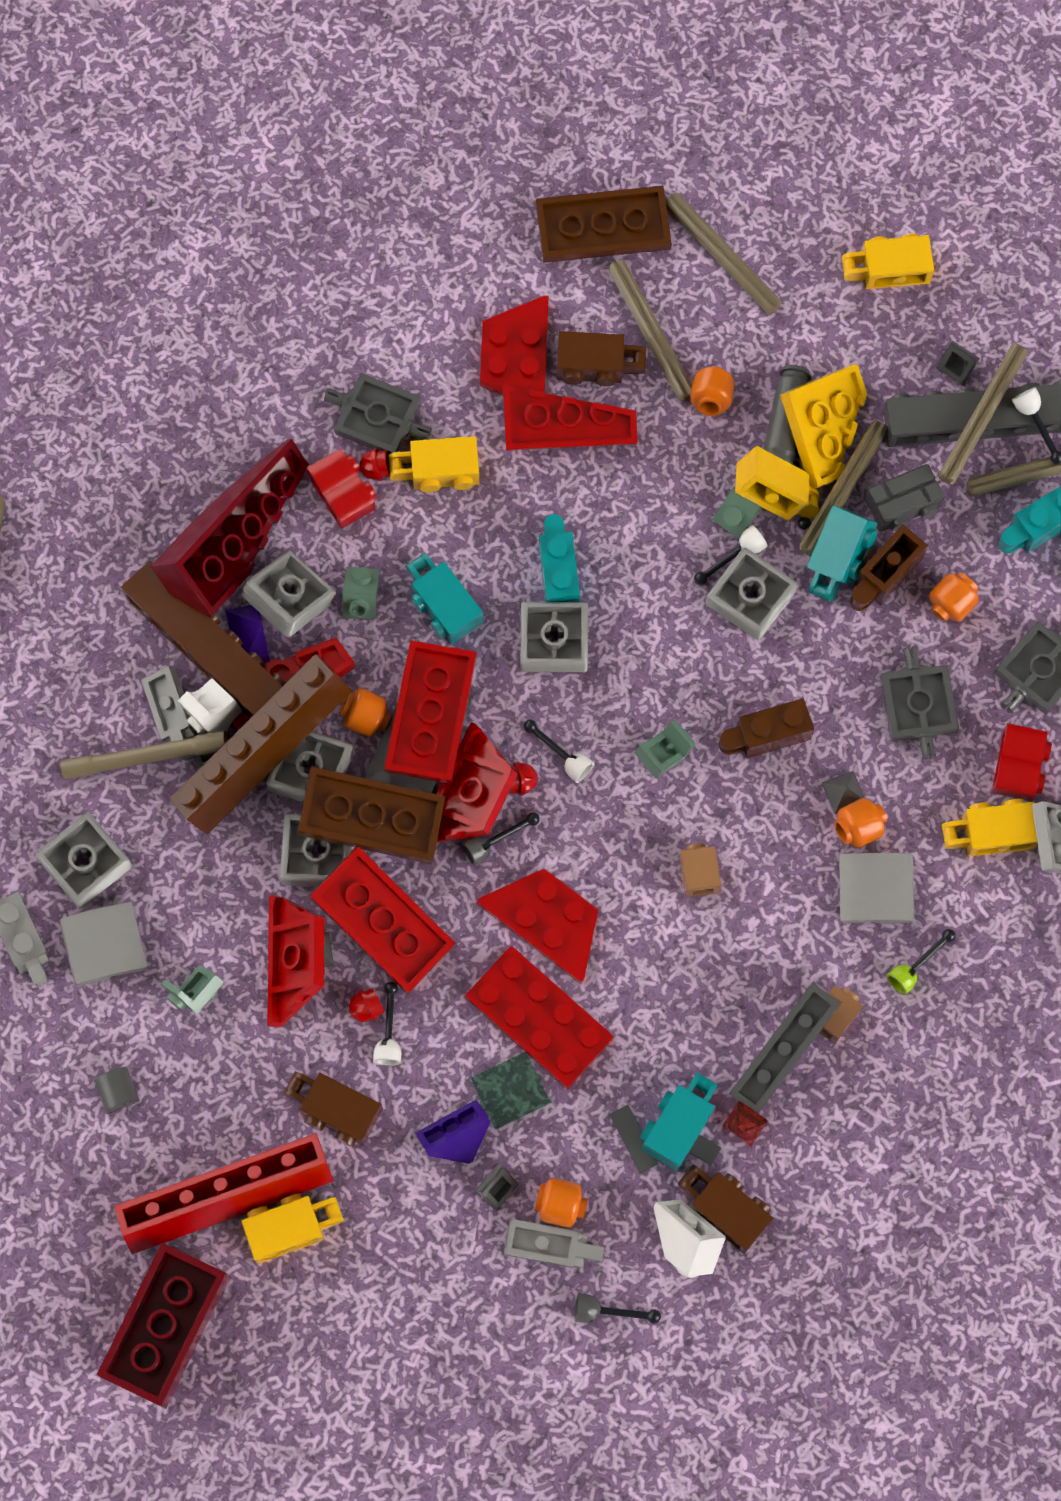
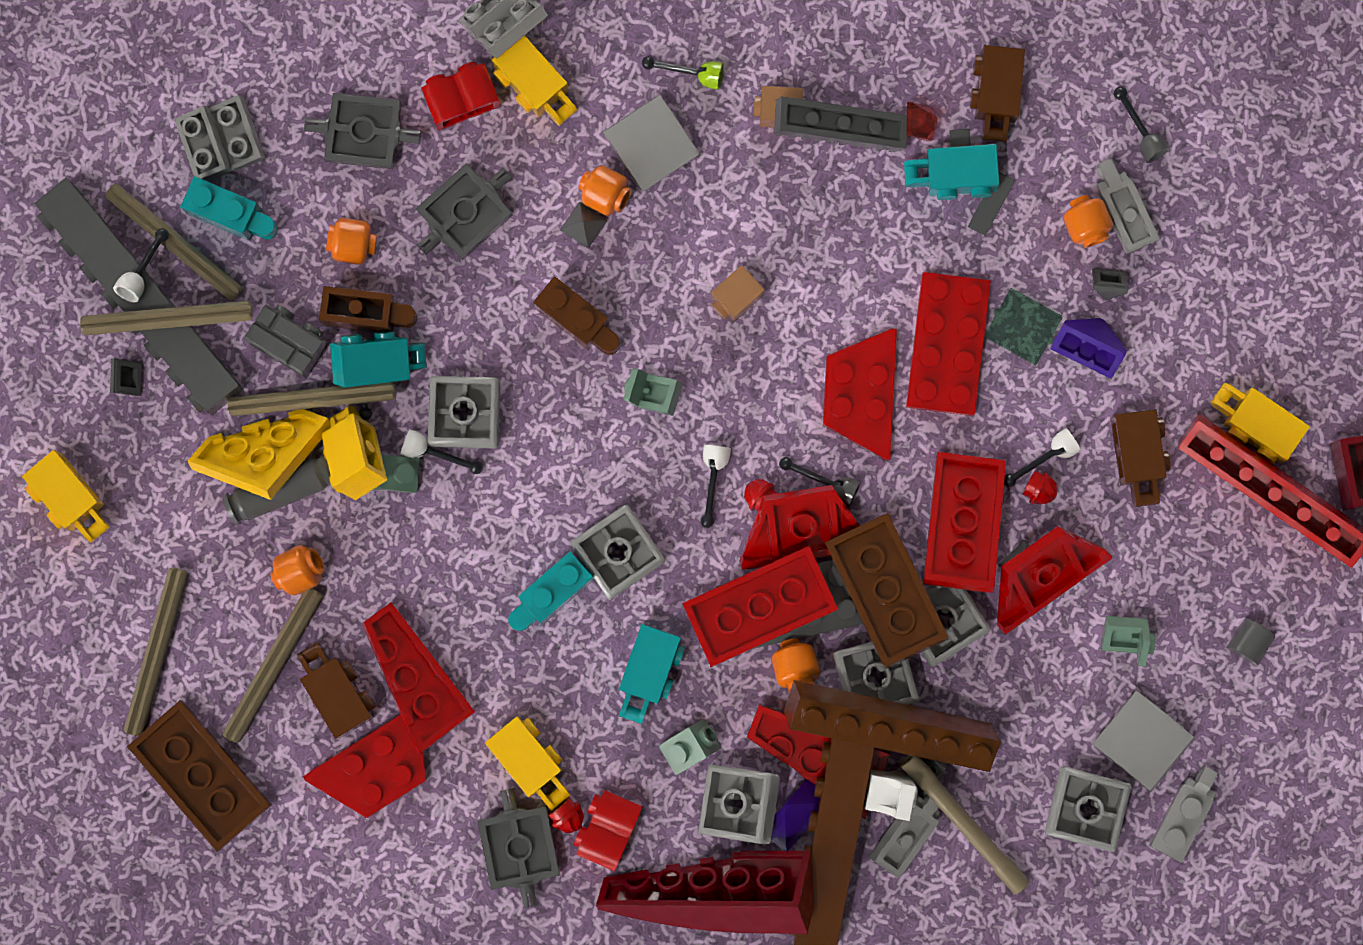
camera: 120 degrees left, 10 degrees up
(687, 1238) = (1045, 103): white slope -> none

